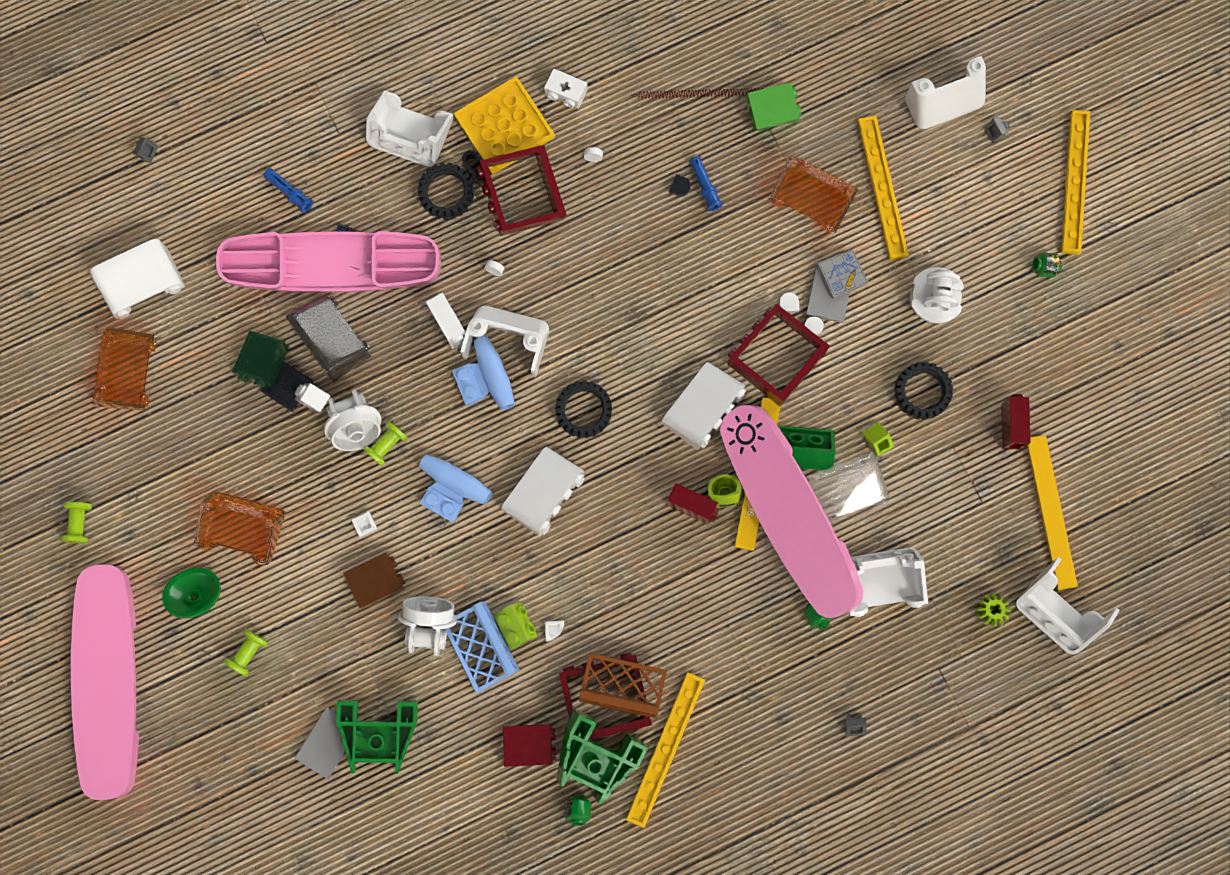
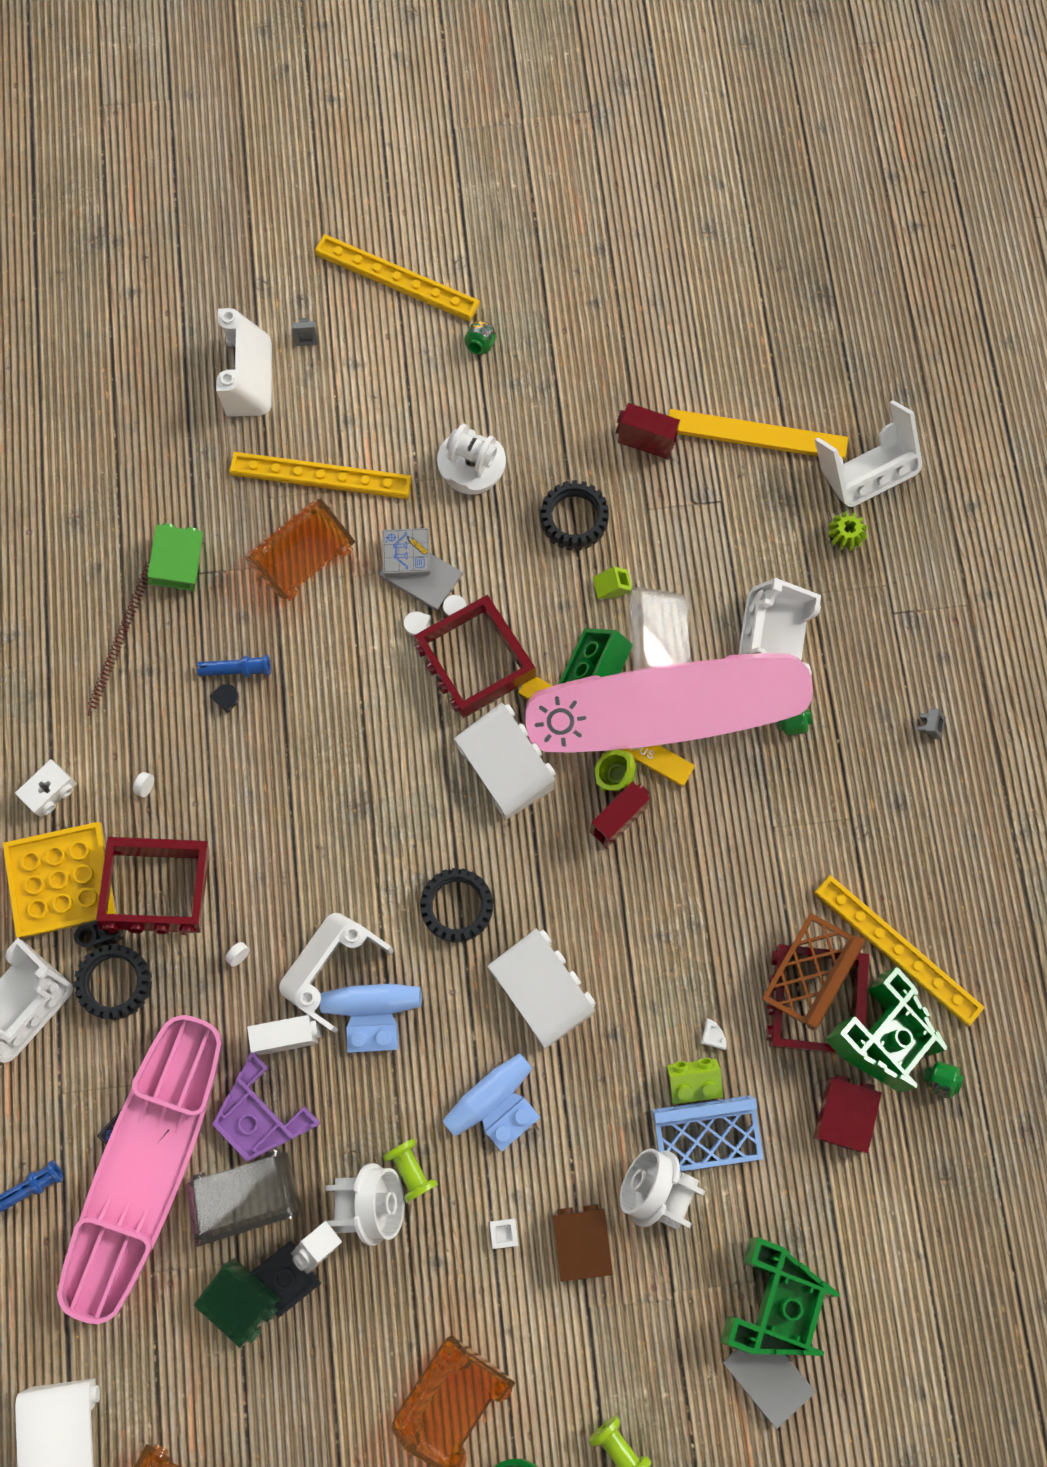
camera: 75 degrees left, 5 degrees down
(381, 323) = (250, 1123): none -> medium lavender wing

